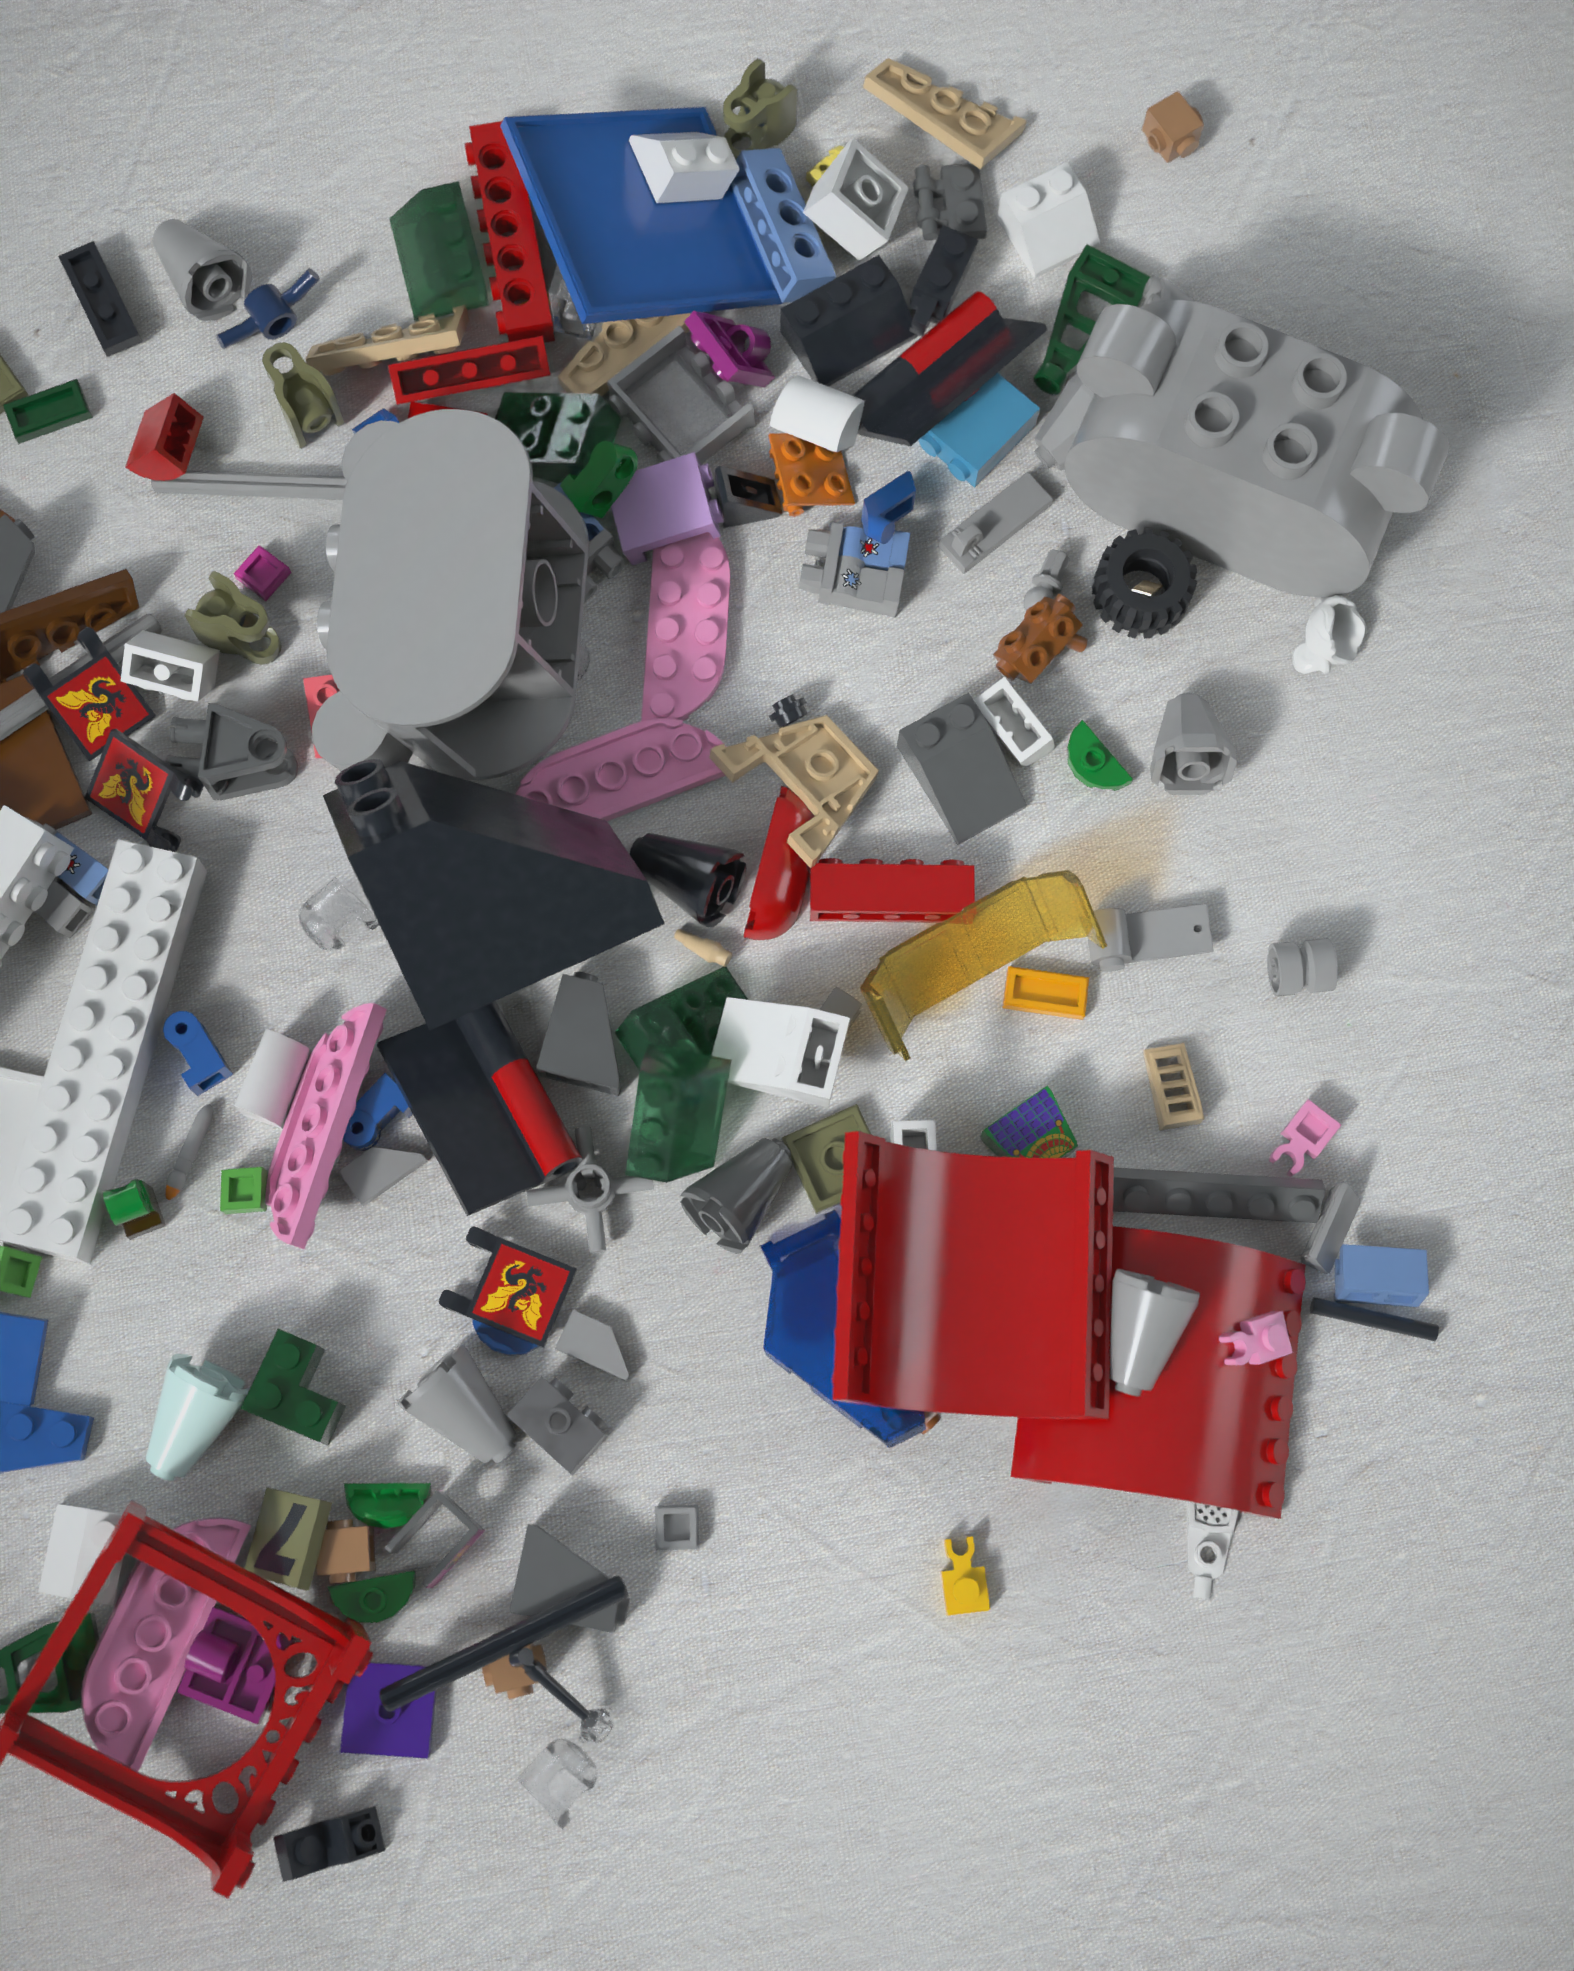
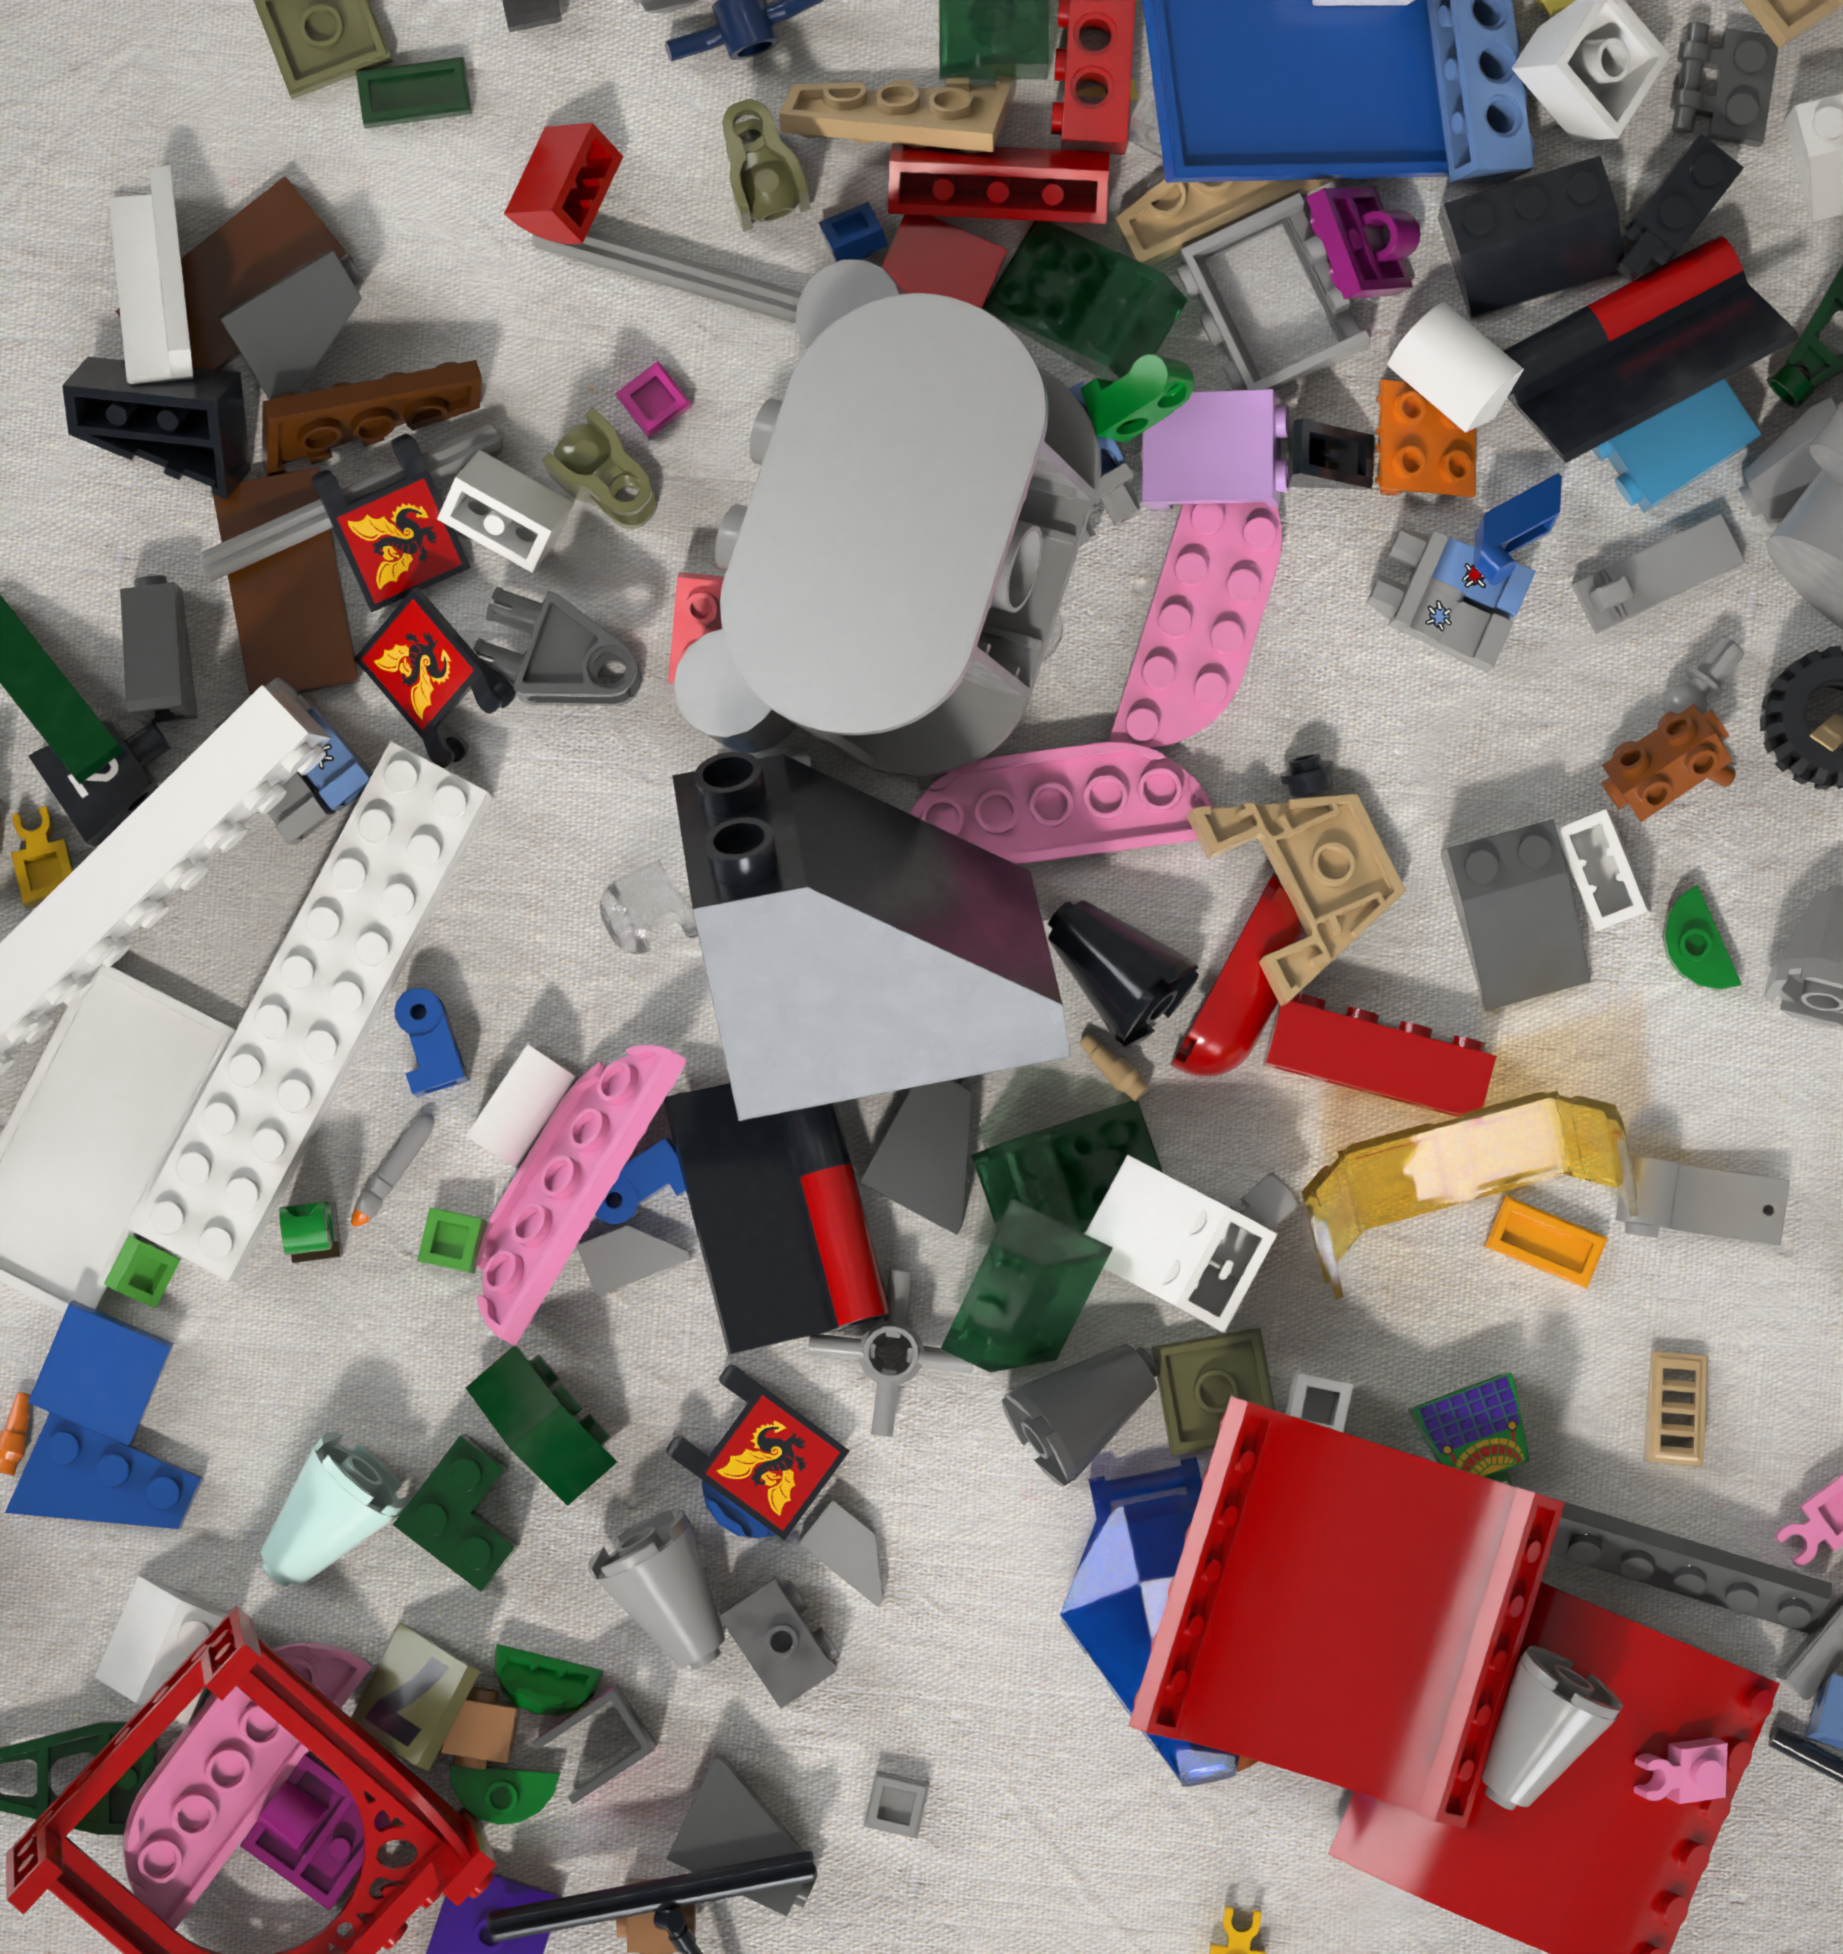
camera: 20 degrees right, 10 degrees up
(337, 1304) = (543, 1423): none -> dark green brick

